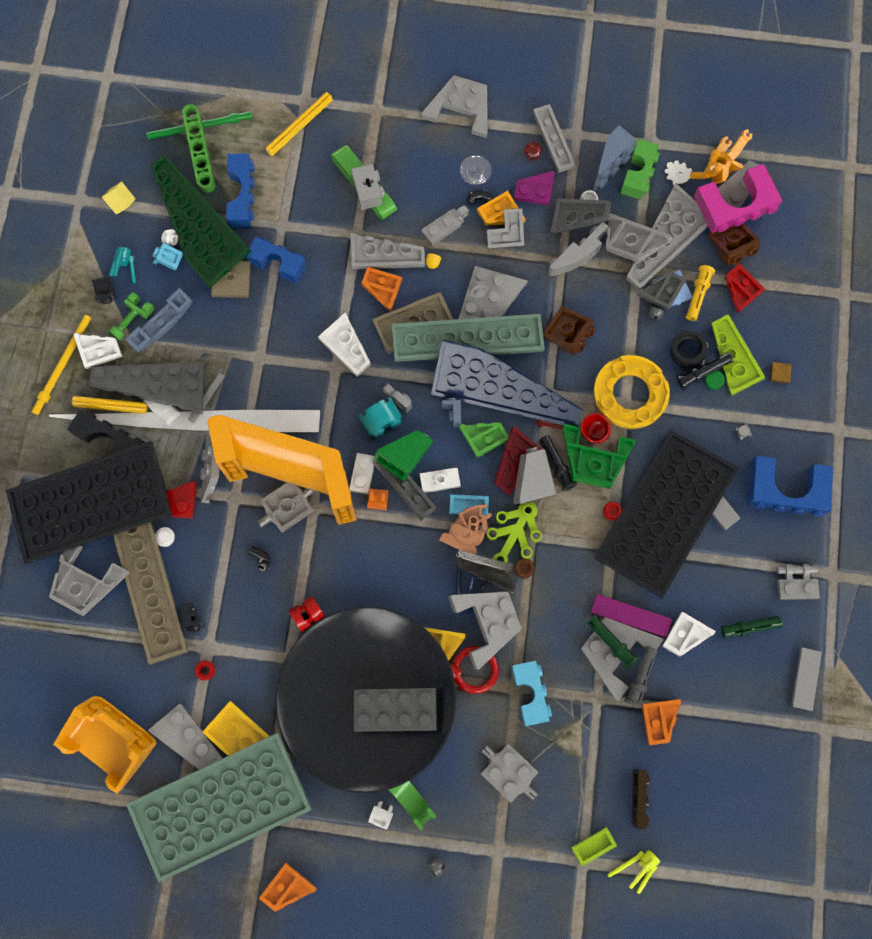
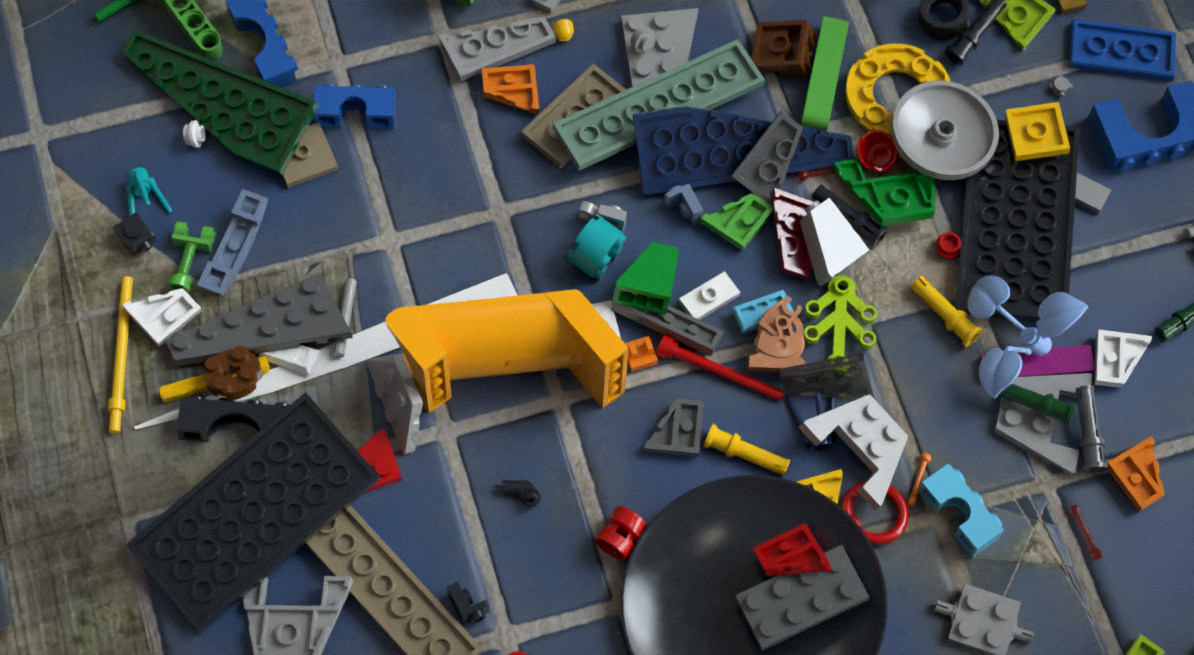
camera: 25 degrees left, 10 degrees down
(114, 398) = (231, 360): none -> reddish brown plate
(118, 198) = (97, 109): light yellow panel -> none
(165, 537) = (377, 517): white plate -> none
(167, 256) = (202, 158): medium azure bracket -> none
(286, 506) = (523, 410): light grey plate -> none
(344, 344) = (498, 177): white wing -> none
(377, 561) = (679, 430): none -> dark grey wing
(397, 505) = (670, 349): none -> red piece
(400, 680) = (792, 553): none -> red wing
(406, 586) = (732, 445): none -> yellow pin
(519, 405) = (769, 157): none -> dark grey wing
(524, 568) = (875, 360): reddish brown tile -> none
(526, 647) = (925, 458): none -> orange hinge
(588, 360) = (825, 73): none -> bright green beam
(590, 563) = (955, 319): none -> yellow pin
(606, 725) = (1075, 511): none -> clear red hinge
(639, 799) = (1163, 579): dark brown hinge -> none
(646, 432) = (944, 130): none -> light grey dish
(651, 596) = (1056, 315): none -> light blue plant
(707, 459) = (1037, 131): none -> yellow plate
(714, 380) = (994, 38): green tile -> none
(798, 423) = (1122, 50): none -> blue tile

